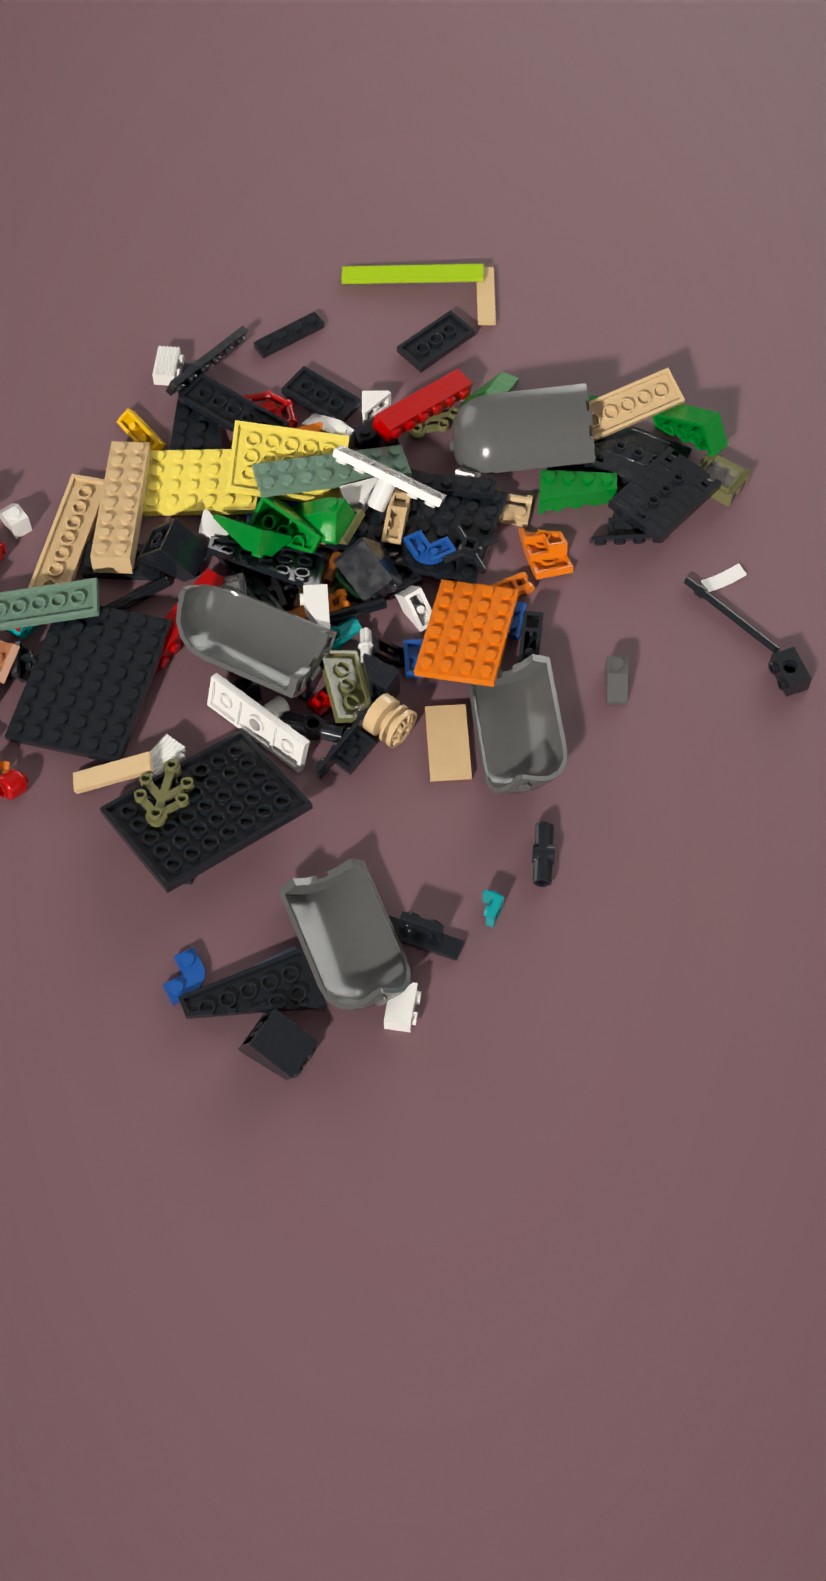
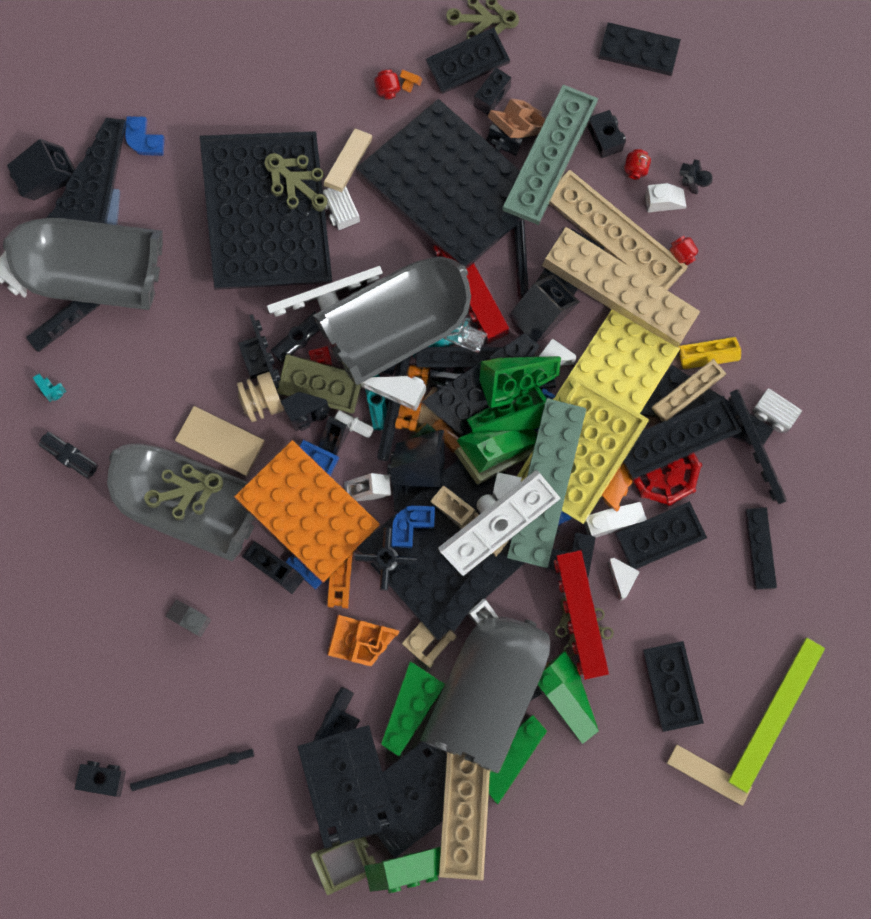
camera: 120 degrees right, 15 degrees up
(57, 483) = (684, 250): none -> red head
(187, 424) = (689, 391): none -> tan tile
(511, 733) = (187, 490): none -> olive plant
(724, 578) = (237, 791): white sticker -> none

